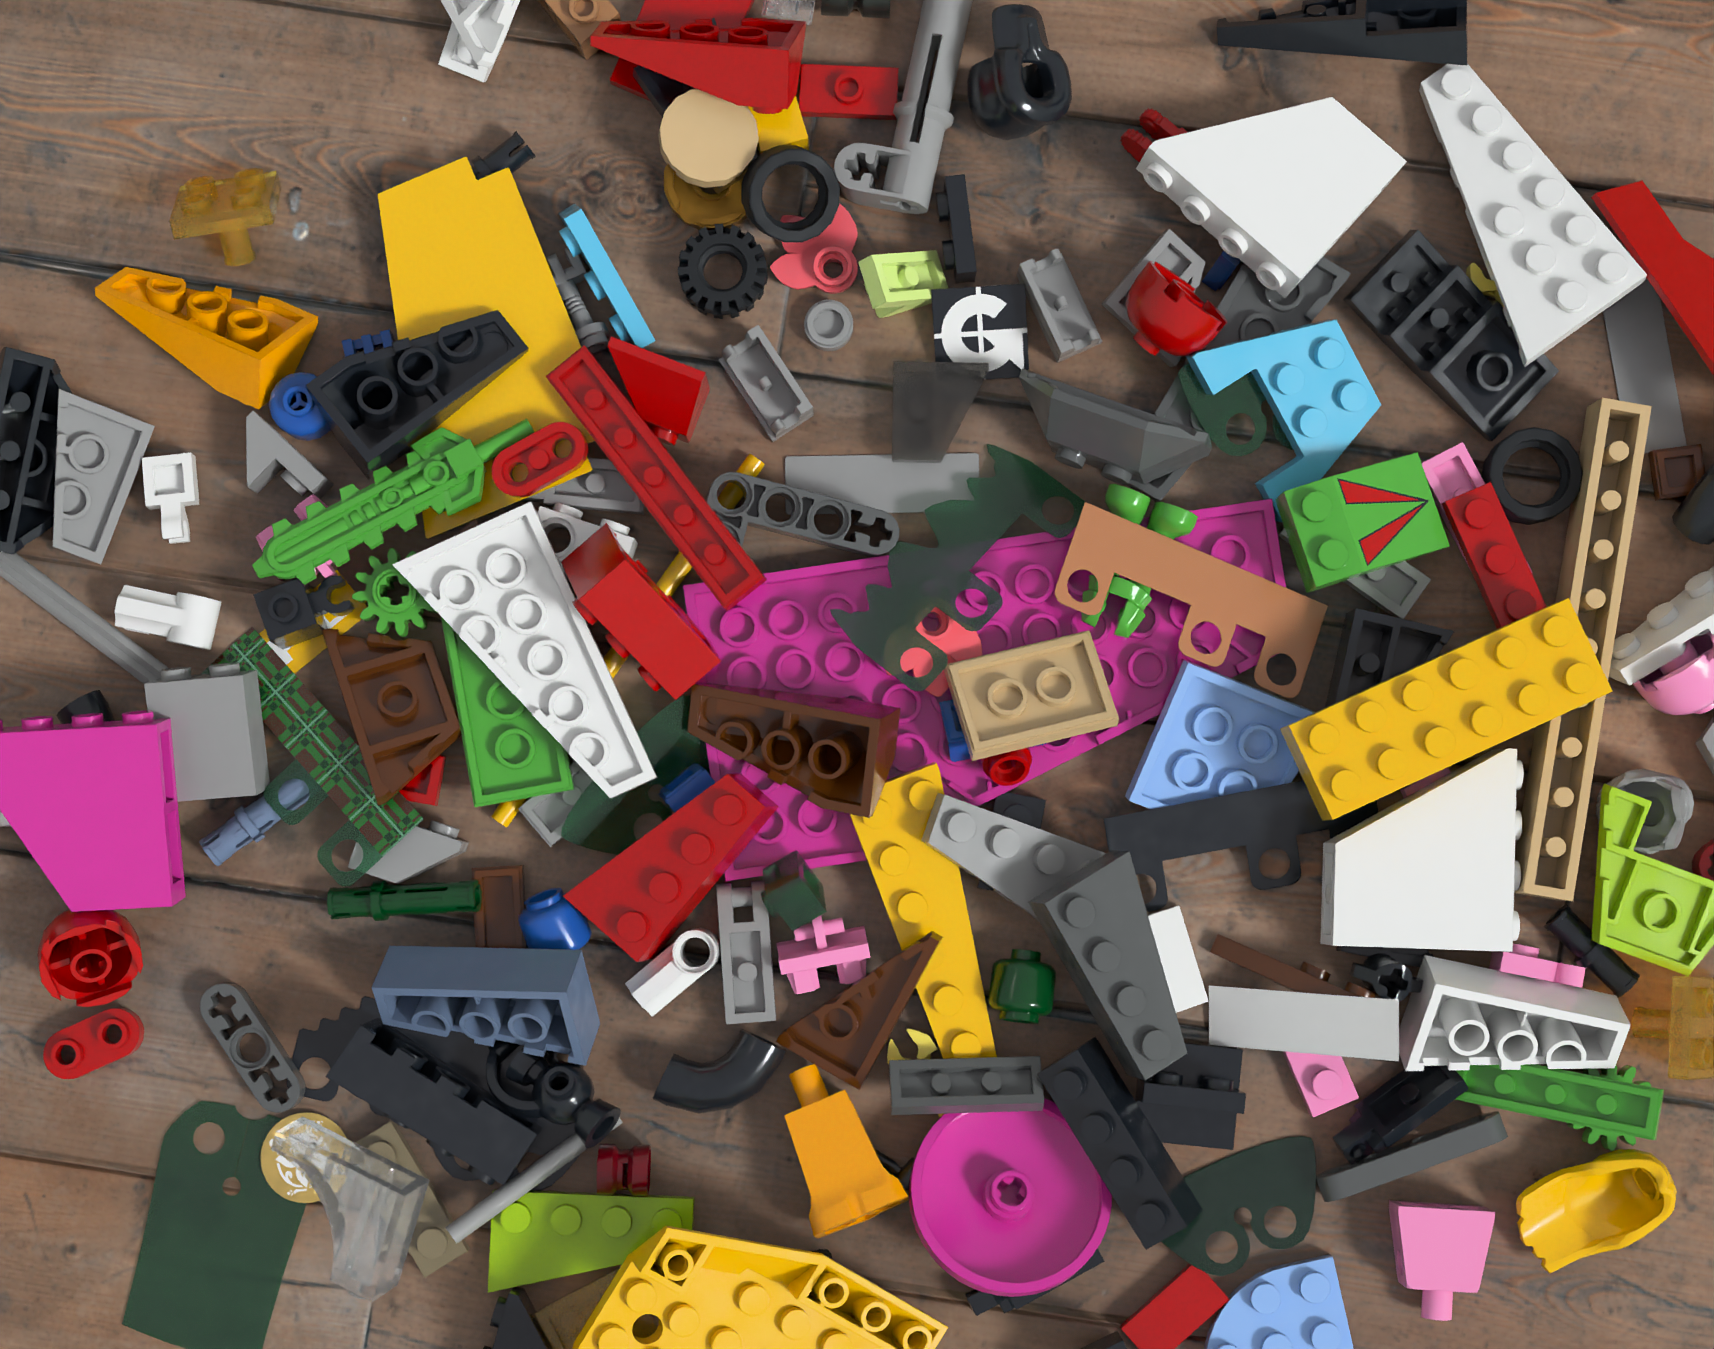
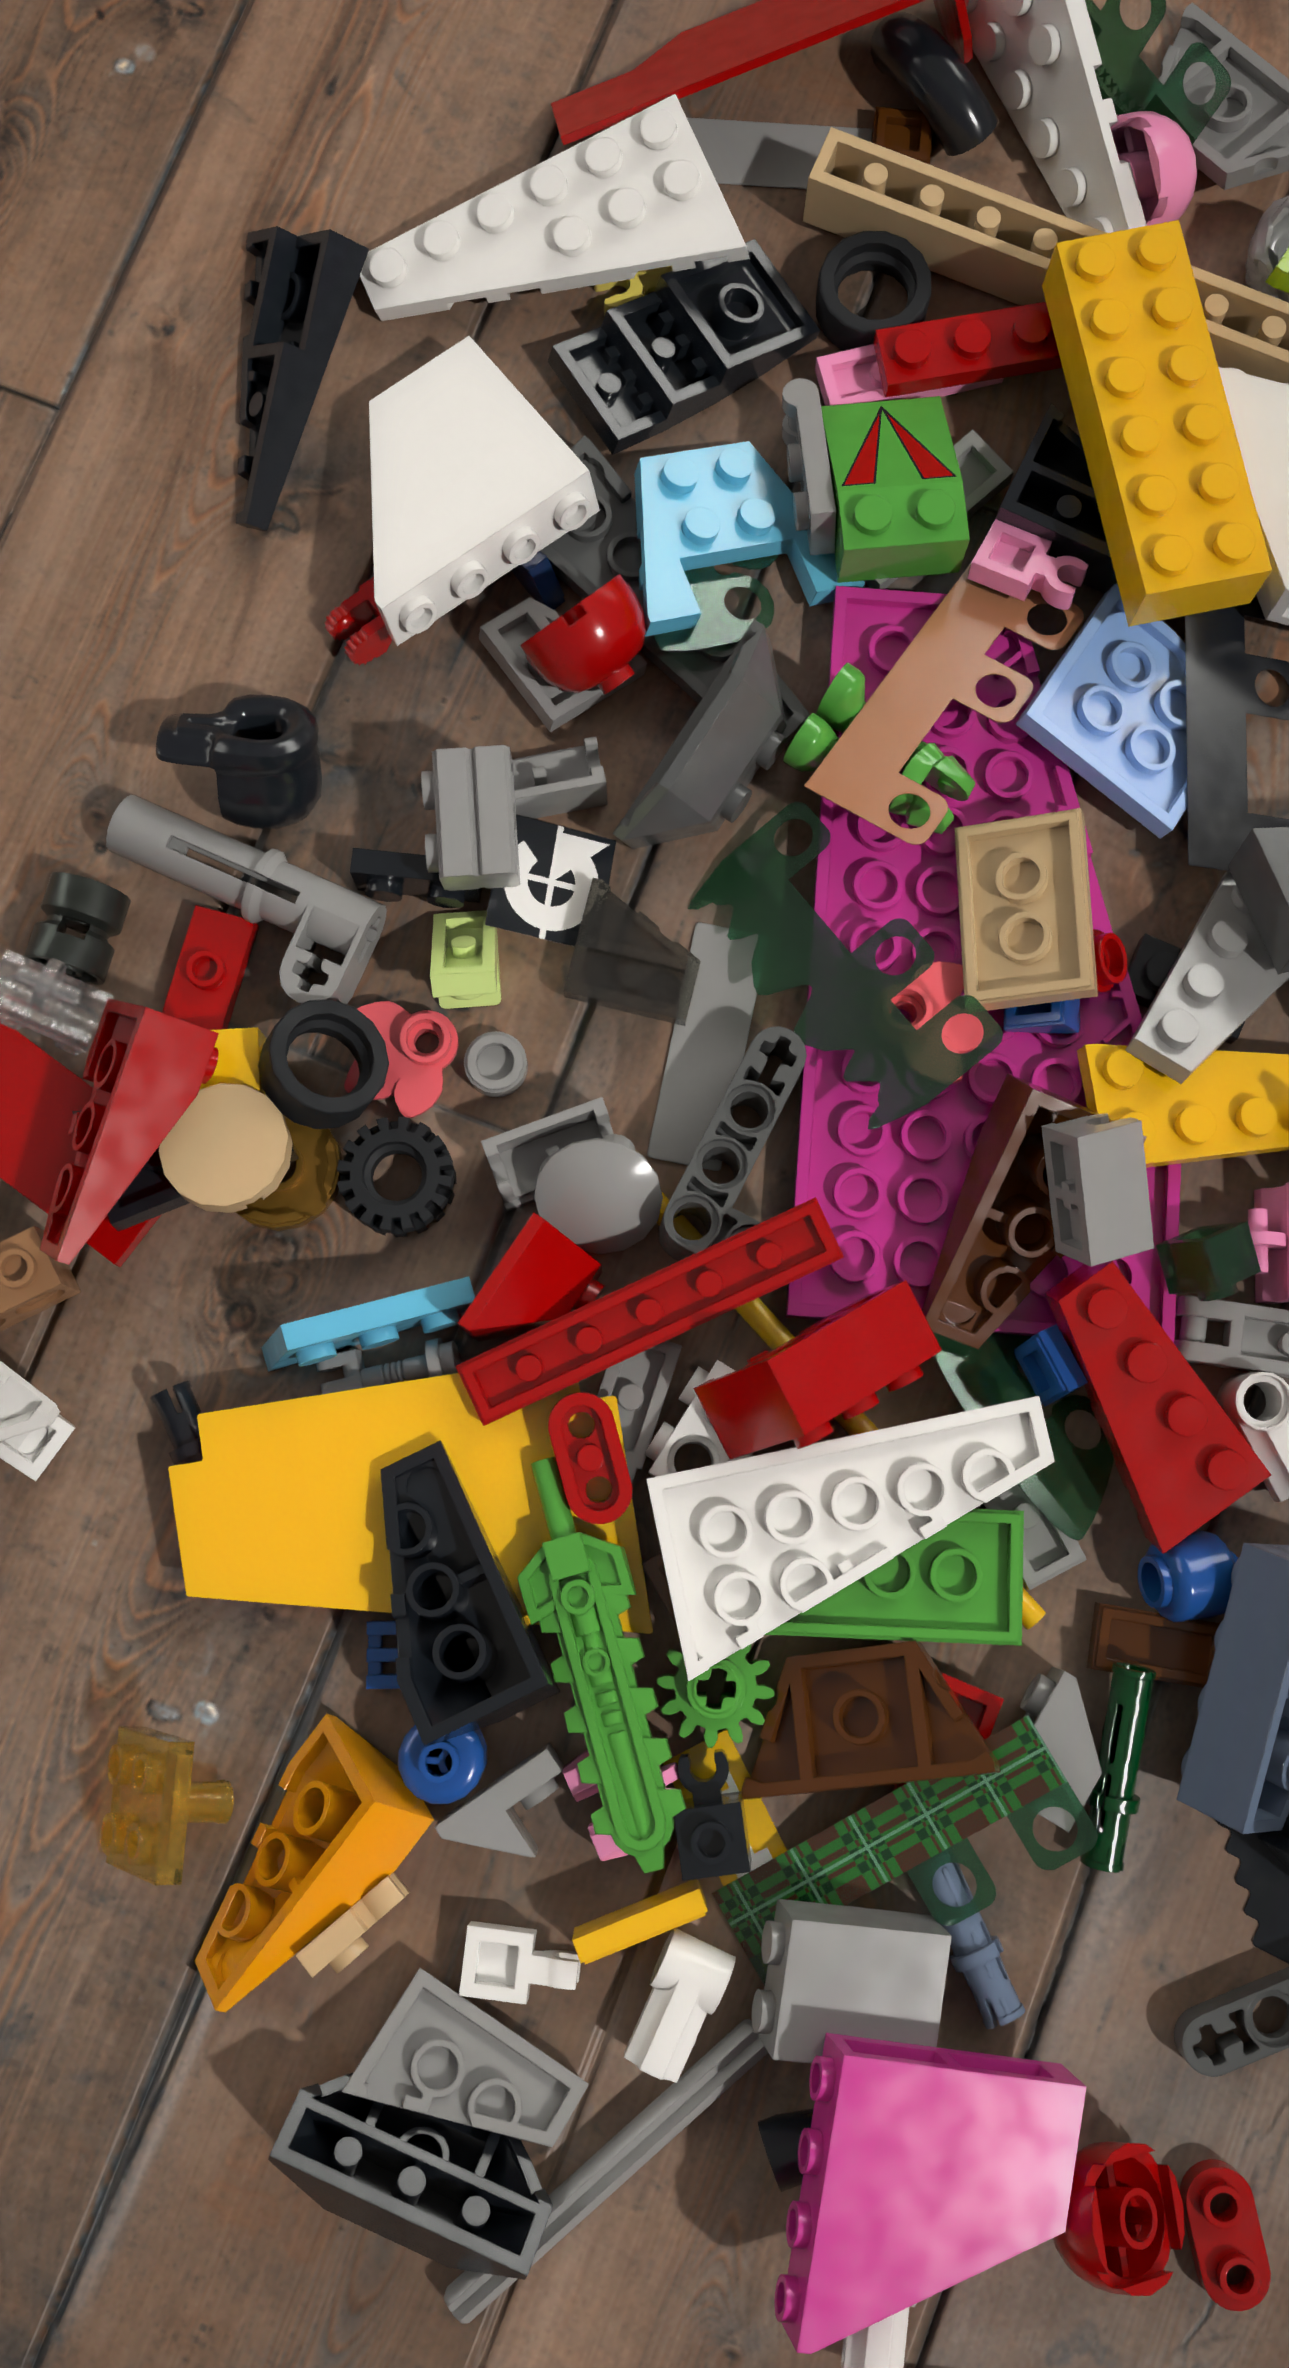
camera: 75 degrees left, 5 degrees down
(162, 366) = (343, 1938): none -> tan plate
(220, 575) = (639, 1921): none -> yellow tile
(740, 423) = (599, 1194): none -> light grey dish
(818, 786) = (1098, 1188): none -> light grey hinge
(1001, 257) = (473, 818): none -> light grey brick
(1321, 635) = (1020, 561): none -> bright pink plate
(1364, 452) = (809, 465): none -> light grey plate

